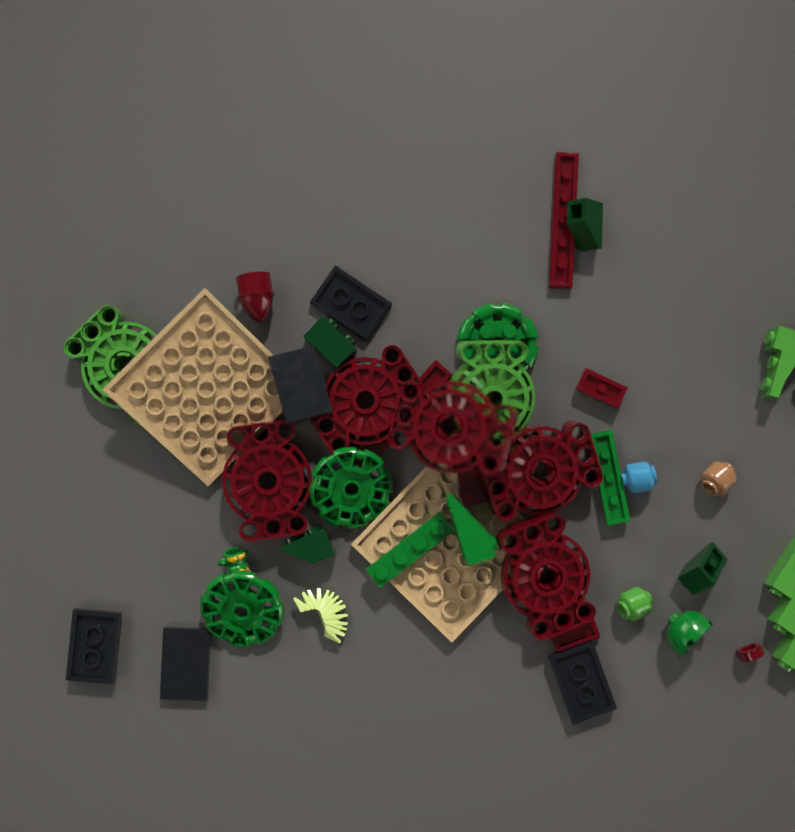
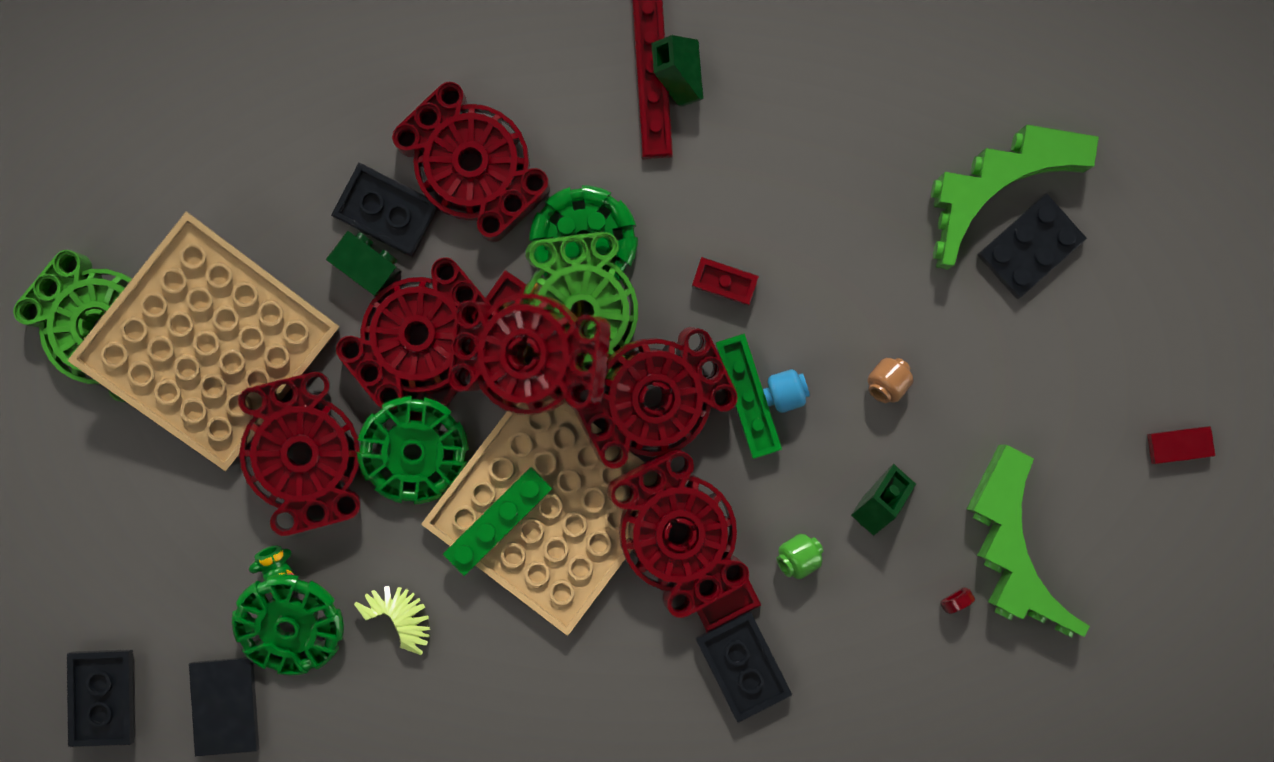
camera: 10 degrees left, 0 degrees up
(255, 294) = (257, 212): dark red helmet -> none
(300, 385) = (328, 324): black tile -> none
(312, 547) = (370, 534): dark green slope -> none
(423, 254) = (462, 131): none -> dark red piece
(470, 487) = (567, 430): dark red tile -> none
(473, 538) = (572, 491): green slope -> none
(686, 630) = (870, 582): green cylinder -> none

